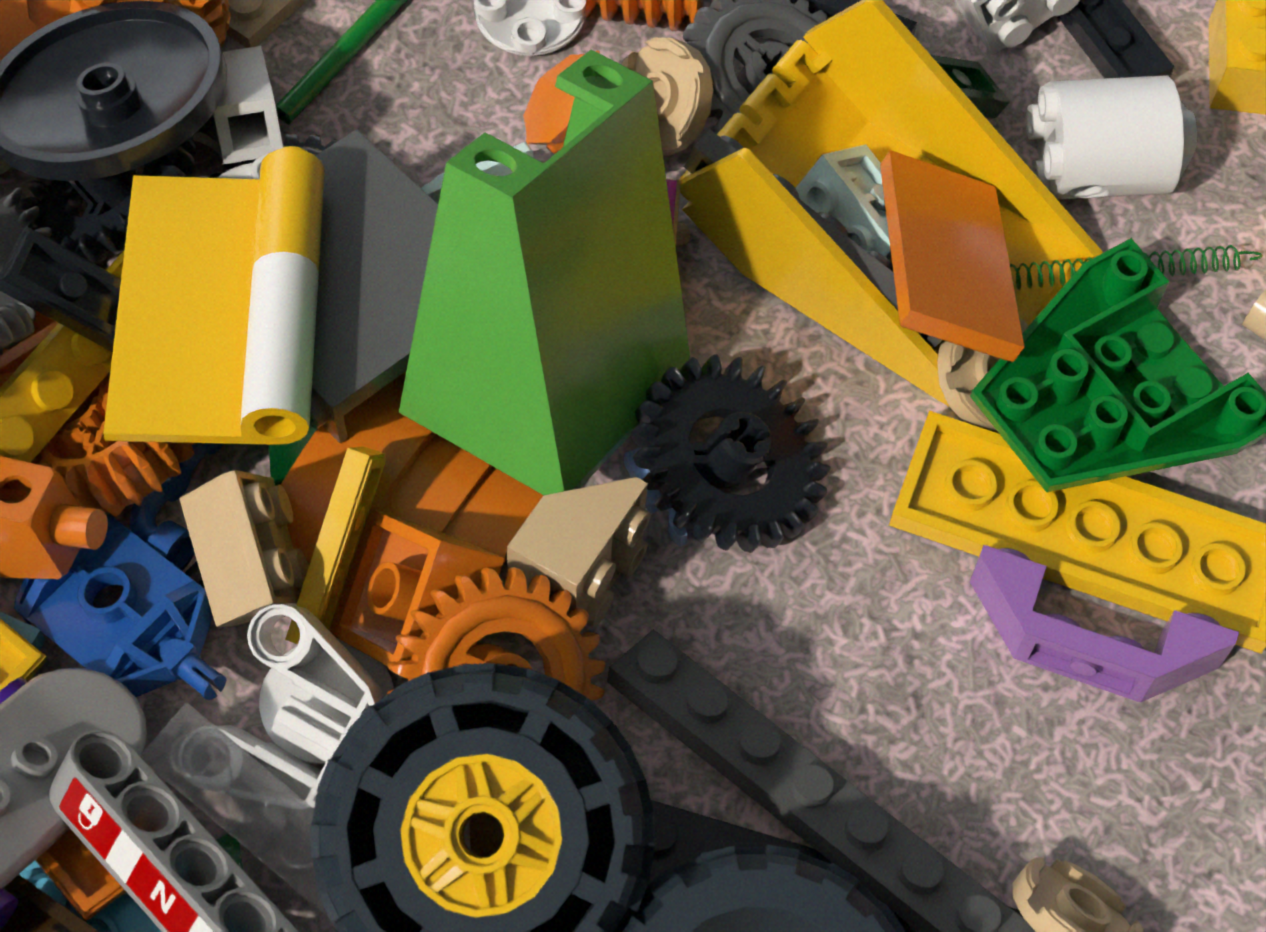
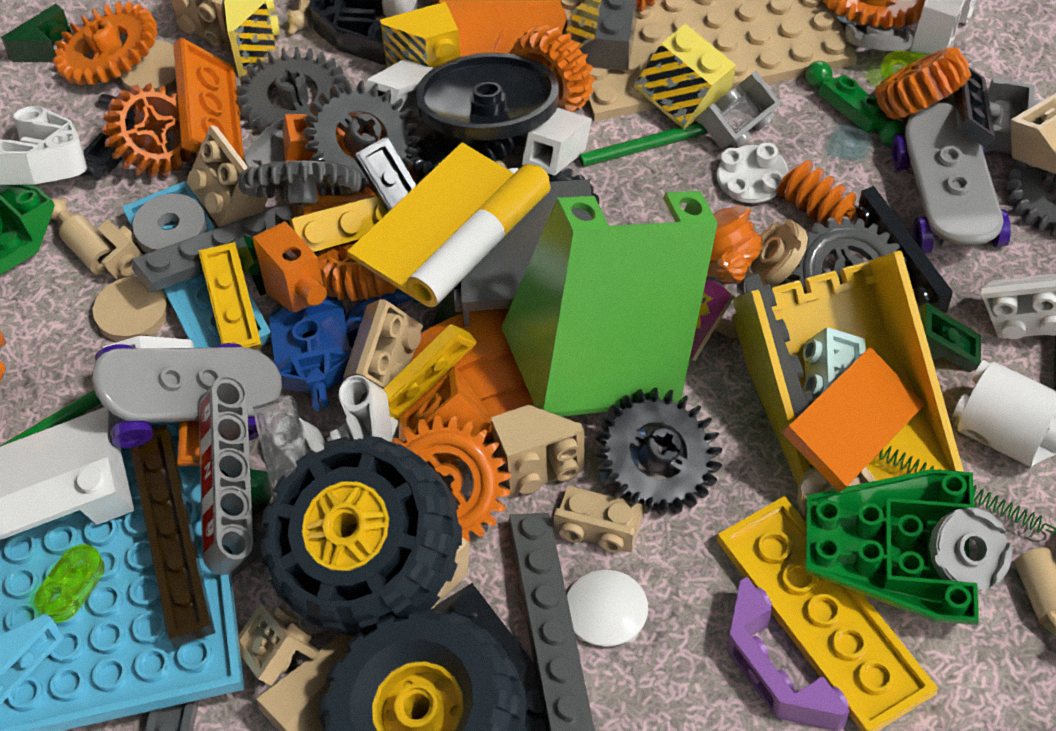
camera: 45 degrees right, 5 degrees down
(722, 595) = (598, 519): none -> tan bracket
(832, 704) = (607, 608): none -> white dish
(1177, 346) = (948, 547): none -> light grey tile

